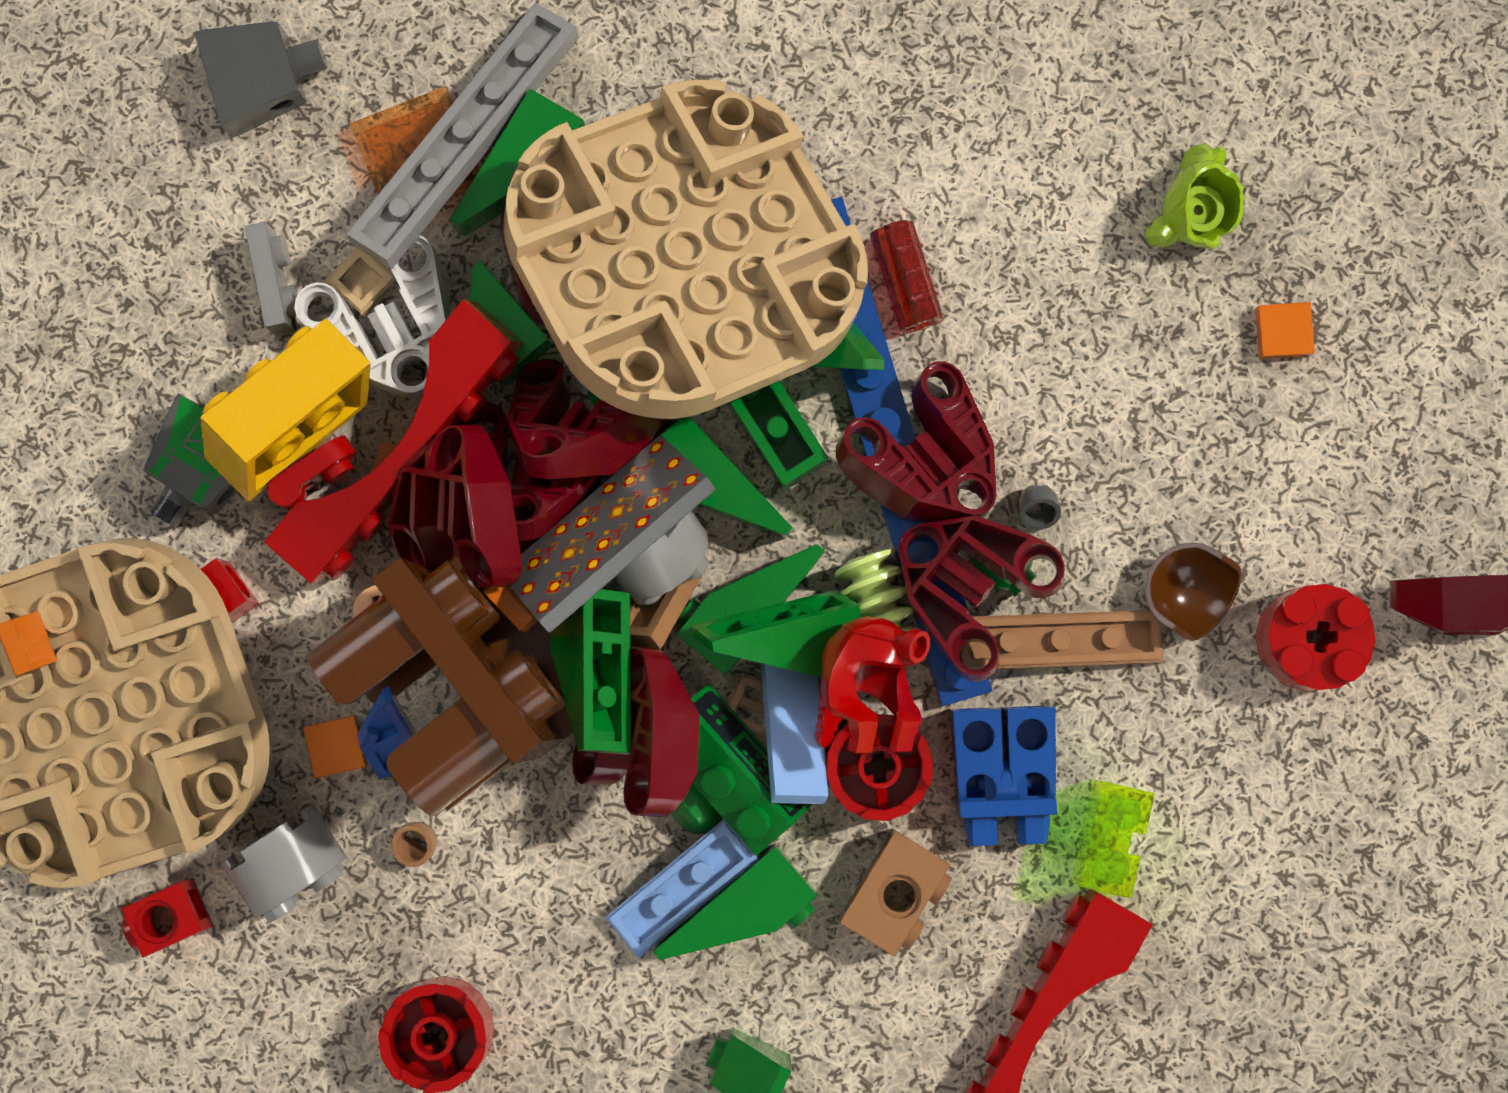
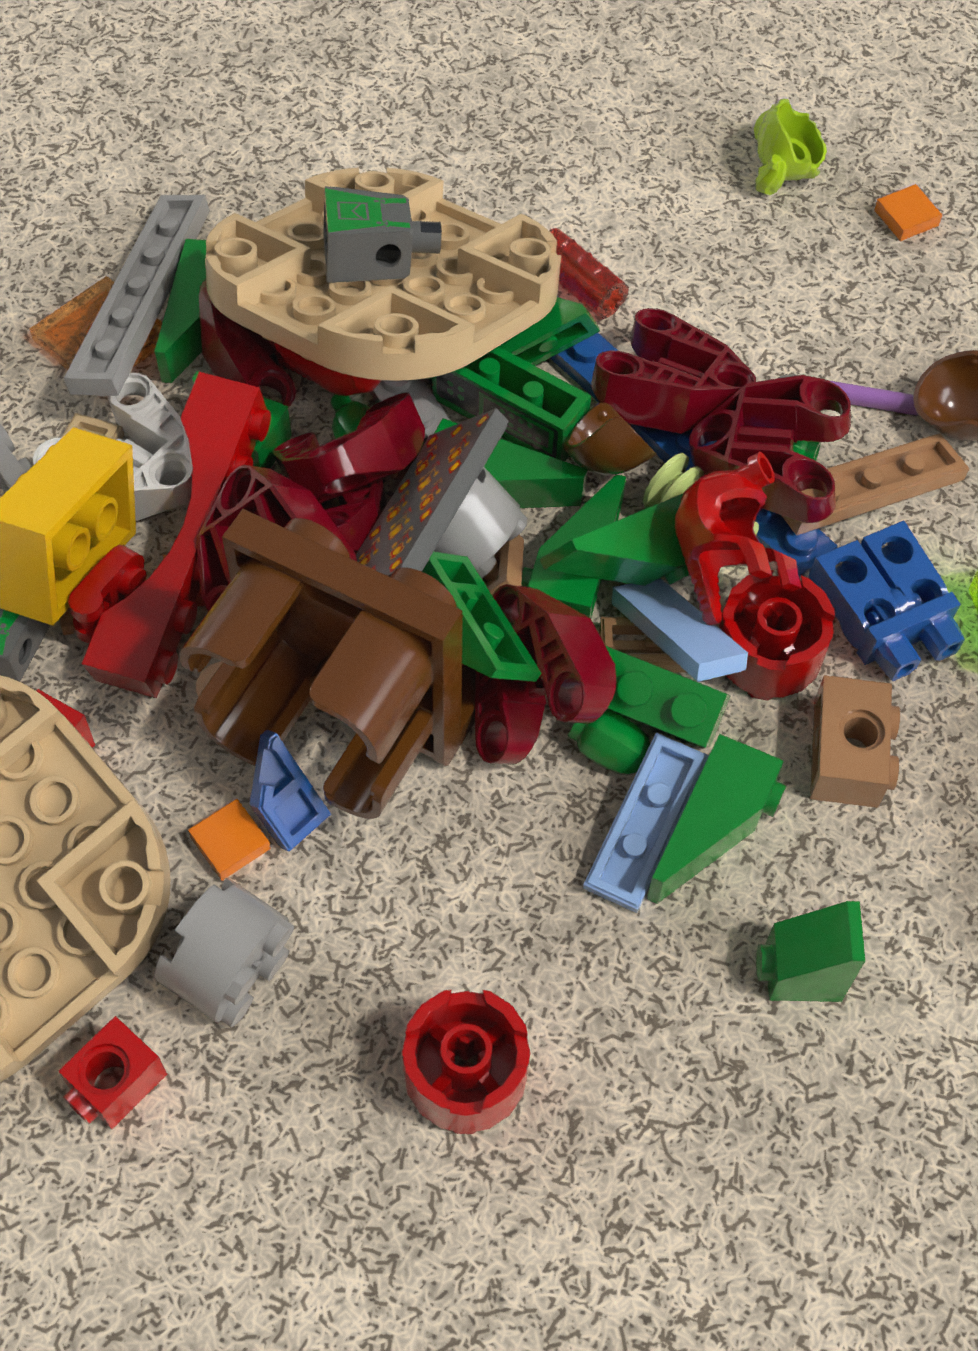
camera: 30 degrees left, 25 degrees down
(409, 851) = (355, 878): medium nougat hinge -> none
(681, 215) = (372, 235): none -> dark grey torso
(822, 512) = (606, 443): none -> reddish brown helmet
(1108, 529) = (879, 398): none -> medium lavender piece

